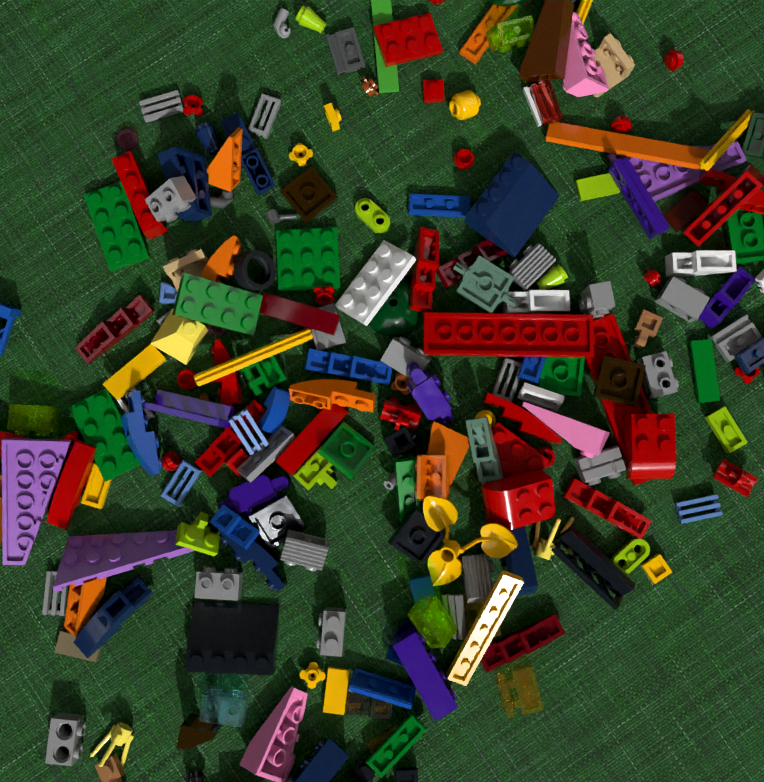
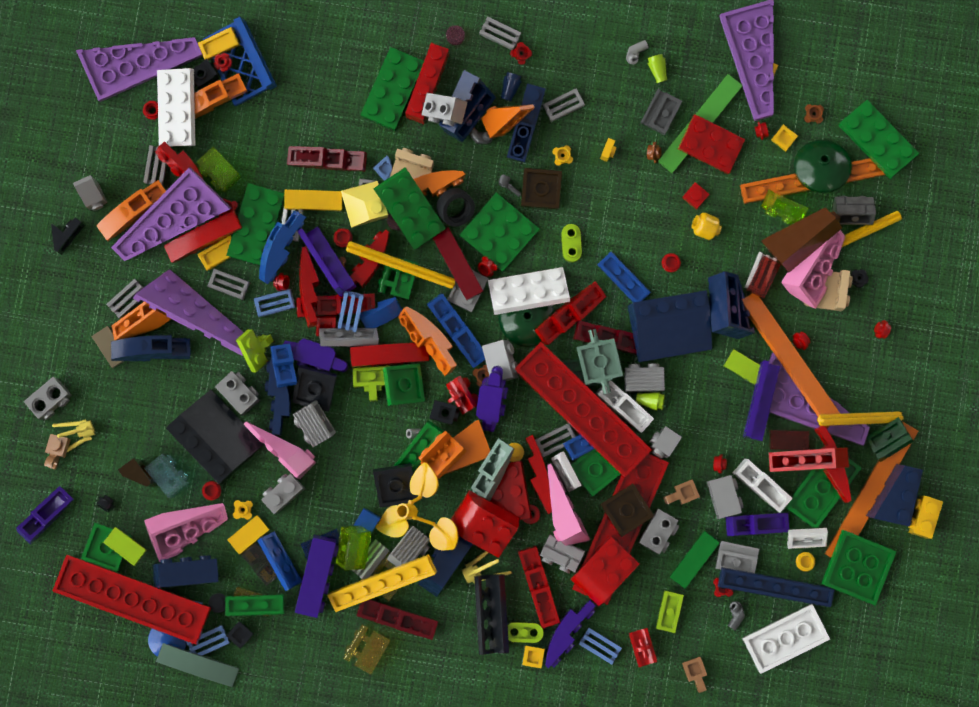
camera: 40 degrees right, 0 degrees up
(146, 496) = (243, 290): none -> light grey tile
(191, 440) = (307, 282): none -> red slope
(272, 684) = (211, 490): none -> red plate
(311, 594) = (291, 456): none -> bright pink wedge
(541, 150) = (727, 307): none -> dark blue wedge
(621, 34) = (864, 278): none -> black plate
(664, 533) = (561, 638): none -> dark purple slope

